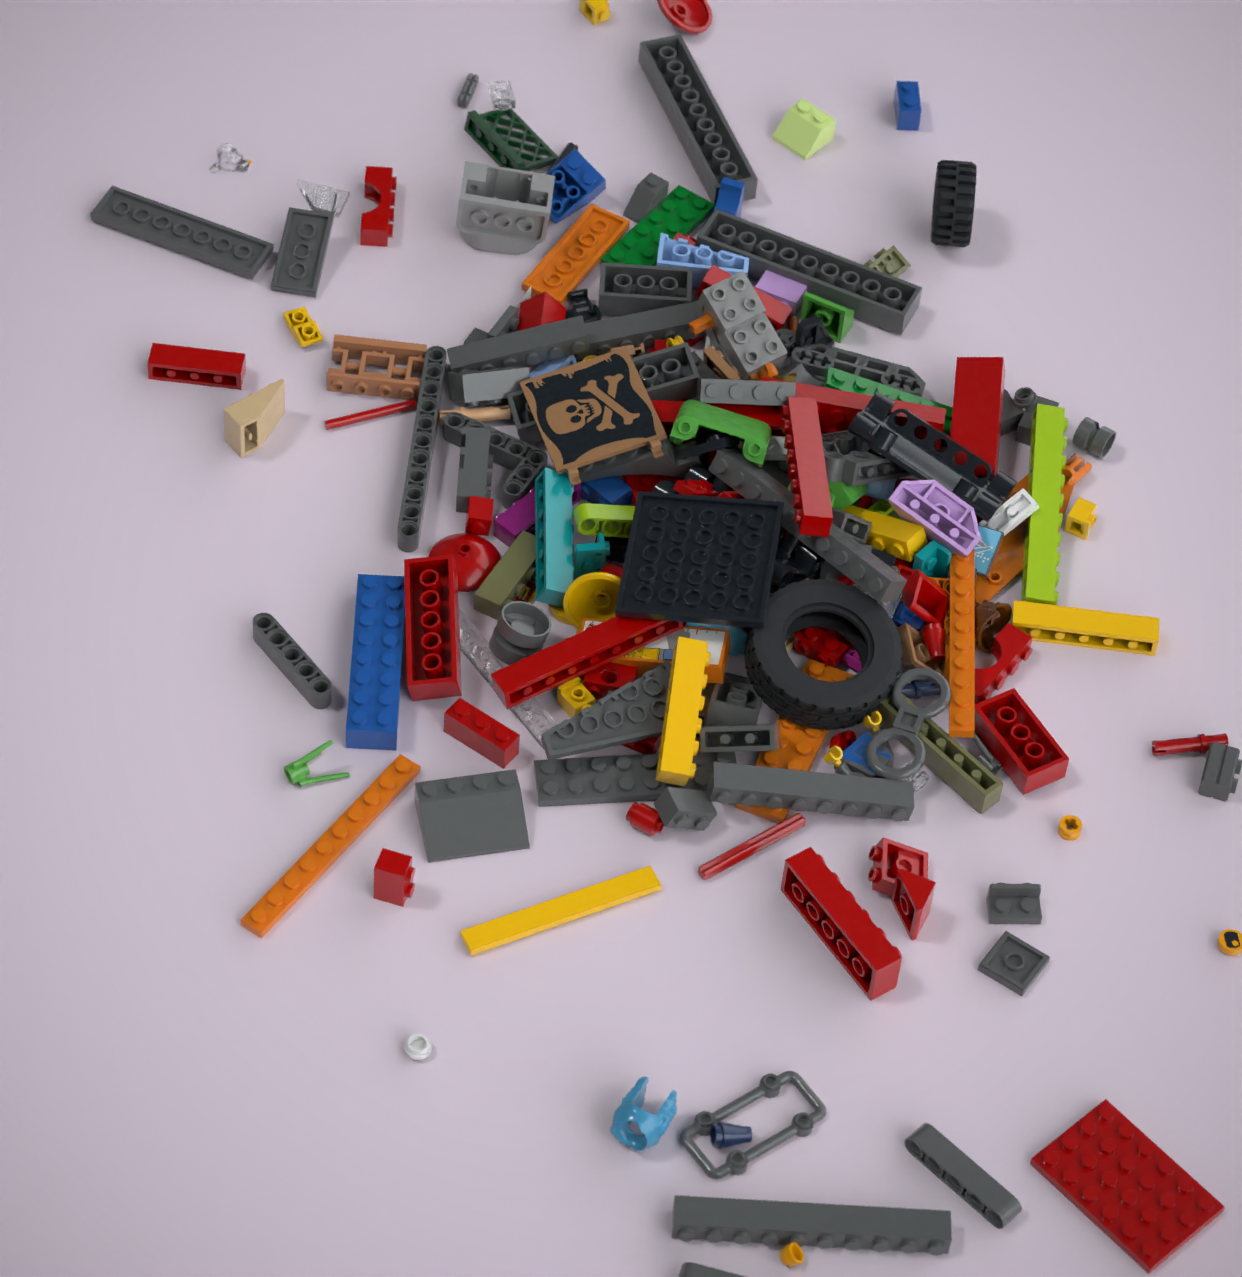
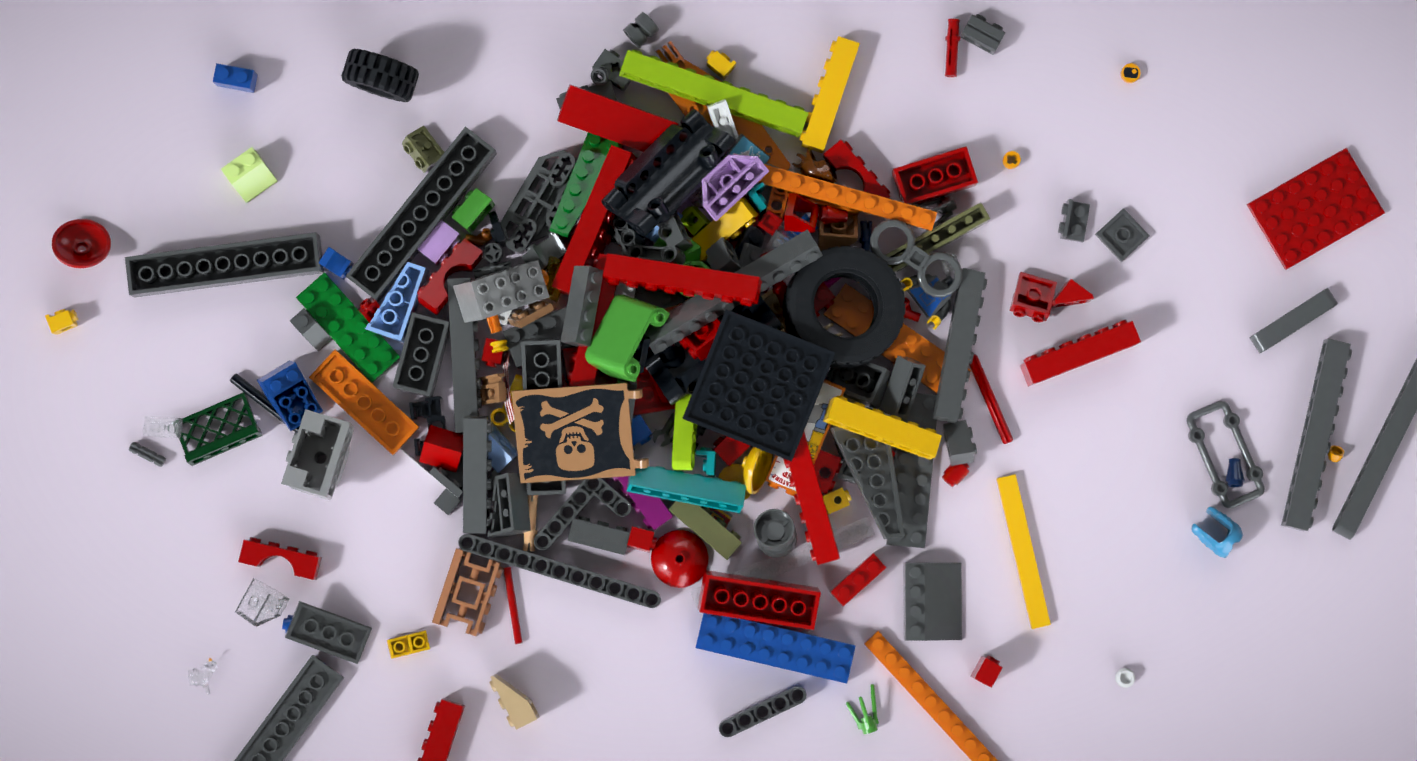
camera: 75 degrees left, 35 degrees up
(692, 487) = (676, 370): red plate -> none

